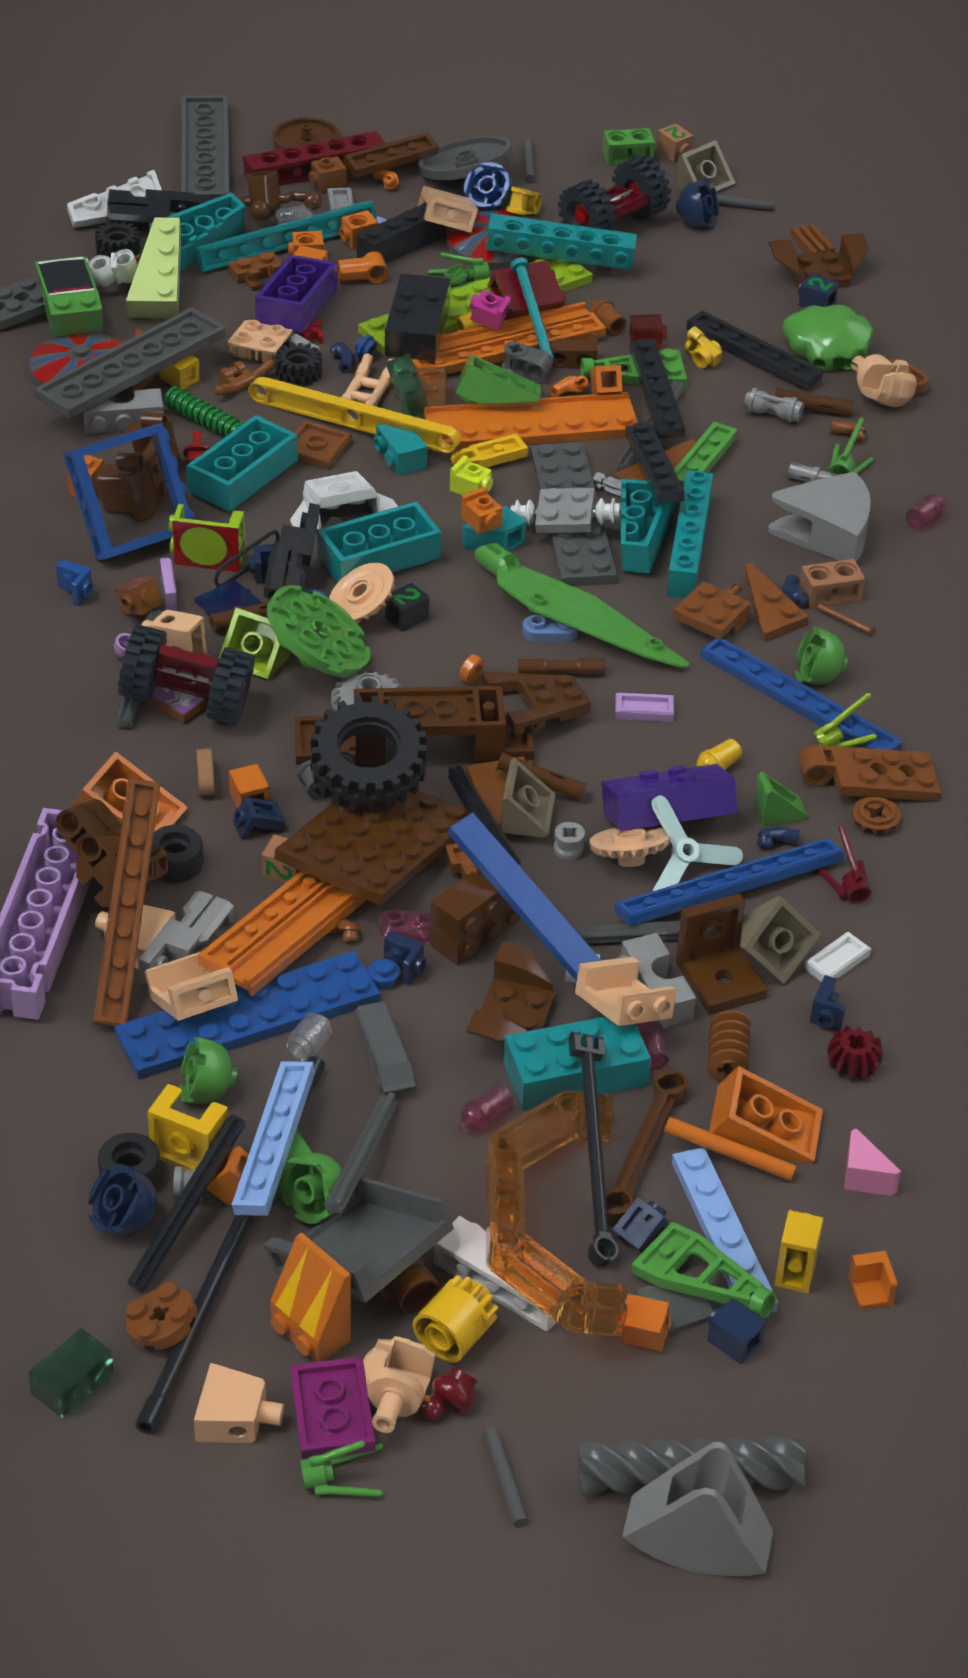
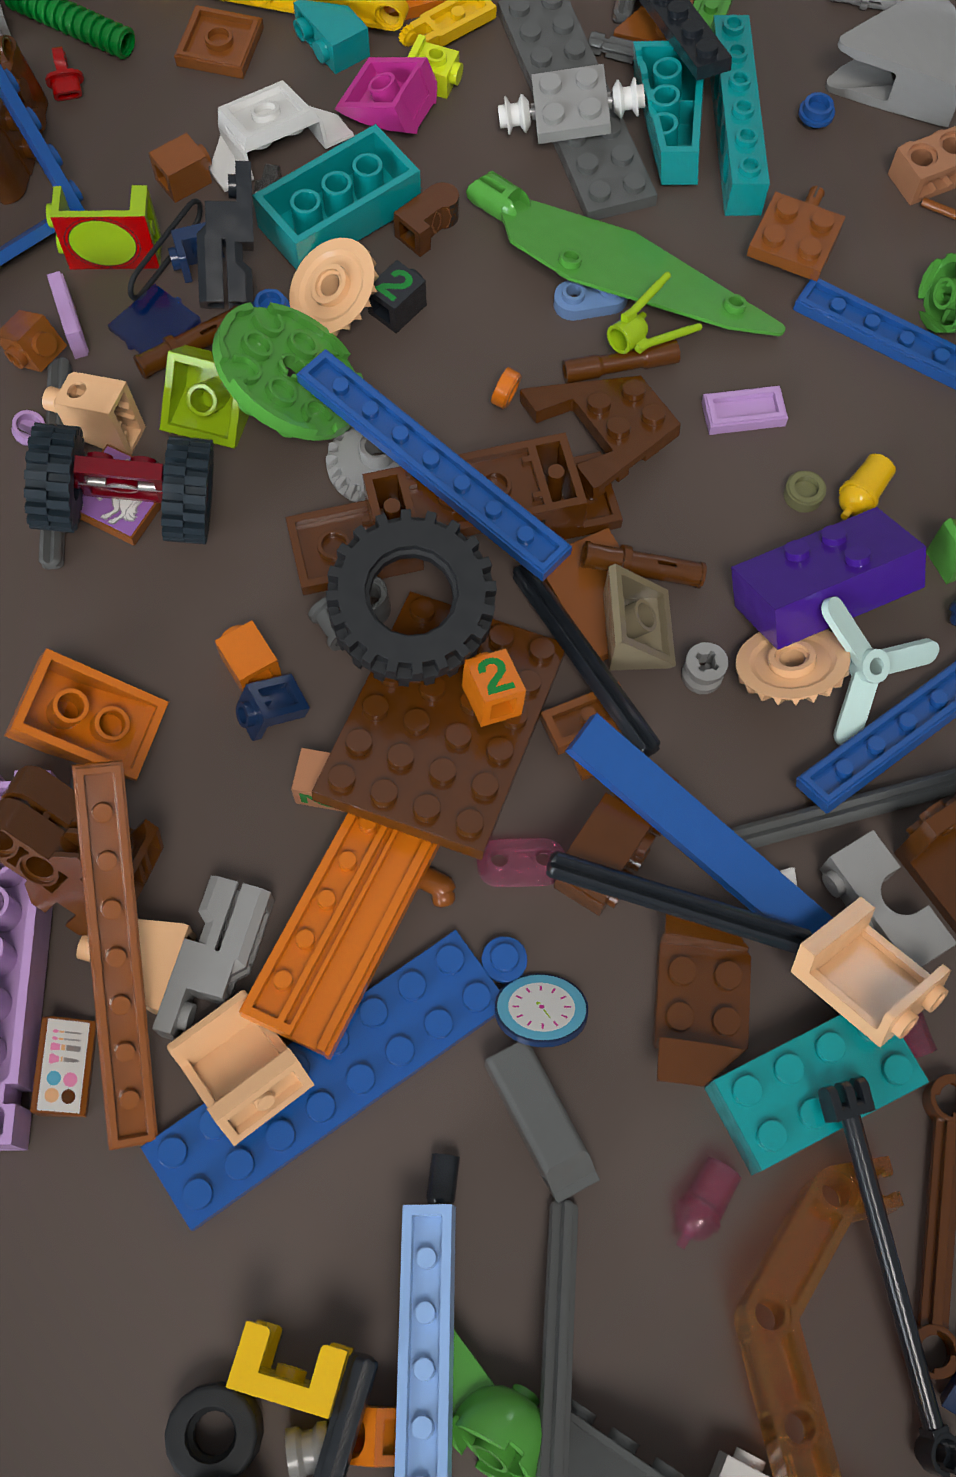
camera: 10 degrees left, 25 degrees up
(72, 981) = (63, 1067): none -> slope
(183, 850) = (161, 771): black tyre -> none
(205, 772) = (180, 636): medium nougat beam -> none
(206, 1072) = (295, 1228): bright green cylinder -> none
(242, 463) = (127, 91): teal brick -> none
(269, 512) = (181, 167): none -> dark orange brick
(308, 1036) = (426, 1113): clear brick -> none
(400, 996) = (541, 1010): none -> piece
(404, 688) = (435, 465): none -> blue tile
(406, 953) = (527, 923): dark blue bracket -> none
(413, 814) = (493, 687): none -> orange brick
(435, 489) = (391, 93): none -> dark pink slope
(441, 565) = (426, 215): none -> reddish brown leg
(481, 511) = (466, 127): orange brick -> none
(499, 931) = (675, 902): none -> black axle
(509, 535) = (486, 146): teal slope -> none
(571, 645) = (632, 328): none -> lime plant
(674, 756) = (804, 491): none -> olive tile
(754, 541) = (817, 110): none -> blue plate
(773, 609) = (871, 217): dark orange wing -> none
(794, 592) = (886, 186): dark blue arm -> none

